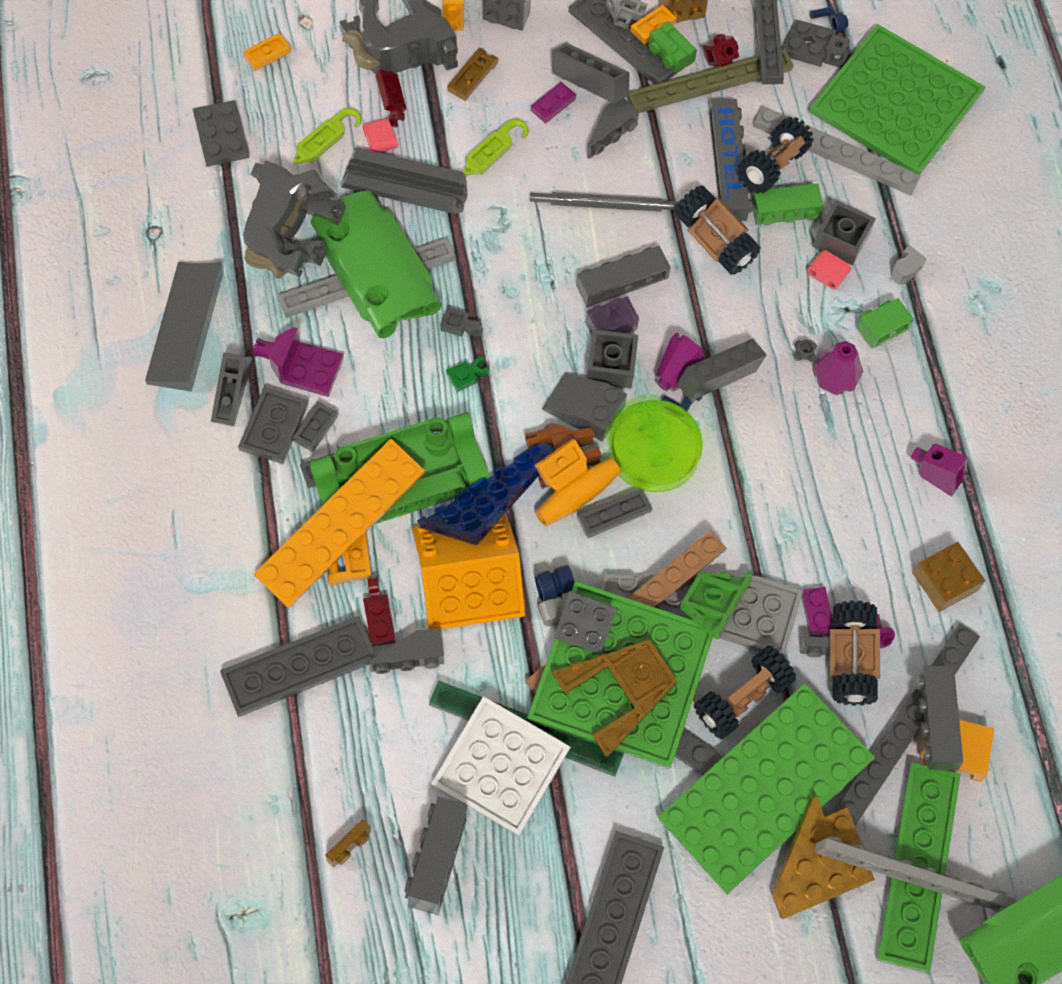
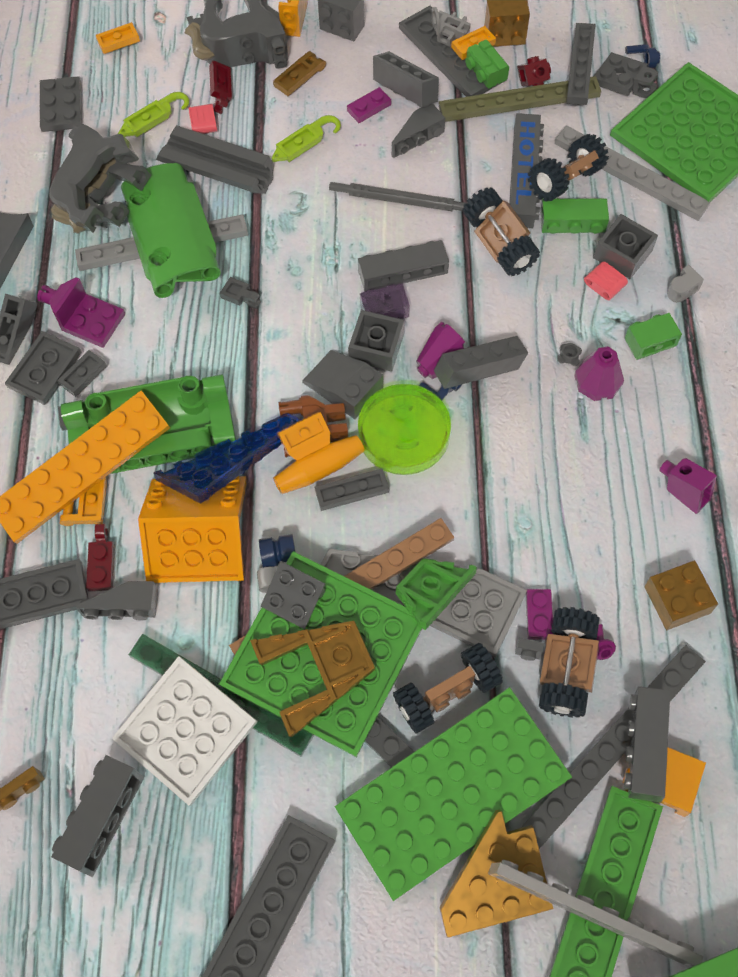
camera: 15 degrees right, 0 degrees up
(464, 376) = (234, 341): green plate -> none

